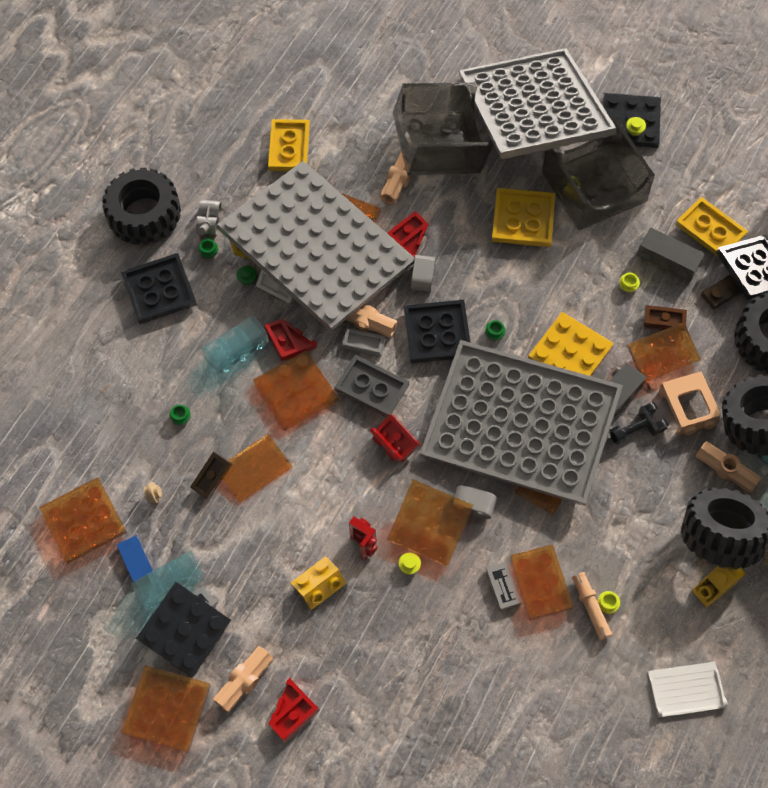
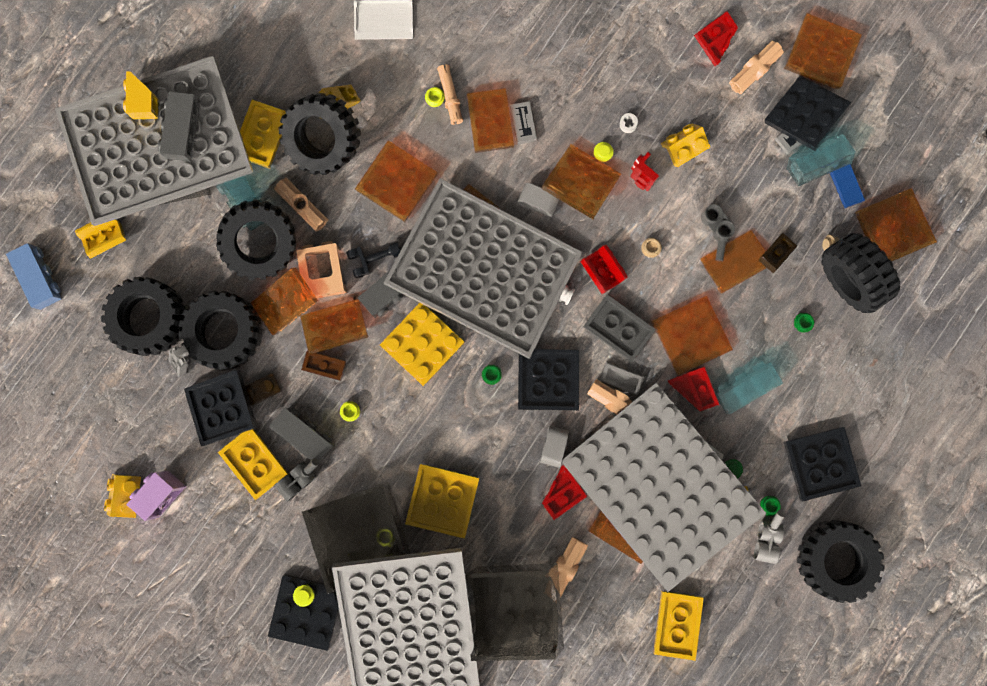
camera: 175 degrees left, 20 degrees up
(127, 449) = (861, 272): none -> black tyre
(278, 498) = (715, 224): none -> dark grey beam
(346, 469) = (651, 247): none -> tan plate
(378, 601) = (634, 122): none -> white bush
(429, 410) = (566, 294): none -> white bush
(631, 504) = (396, 181): none -> clear orange plate
(666, 217) = (300, 477): none -> dark grey beam
(720, 367) = (284, 301): none -> clear orange plate

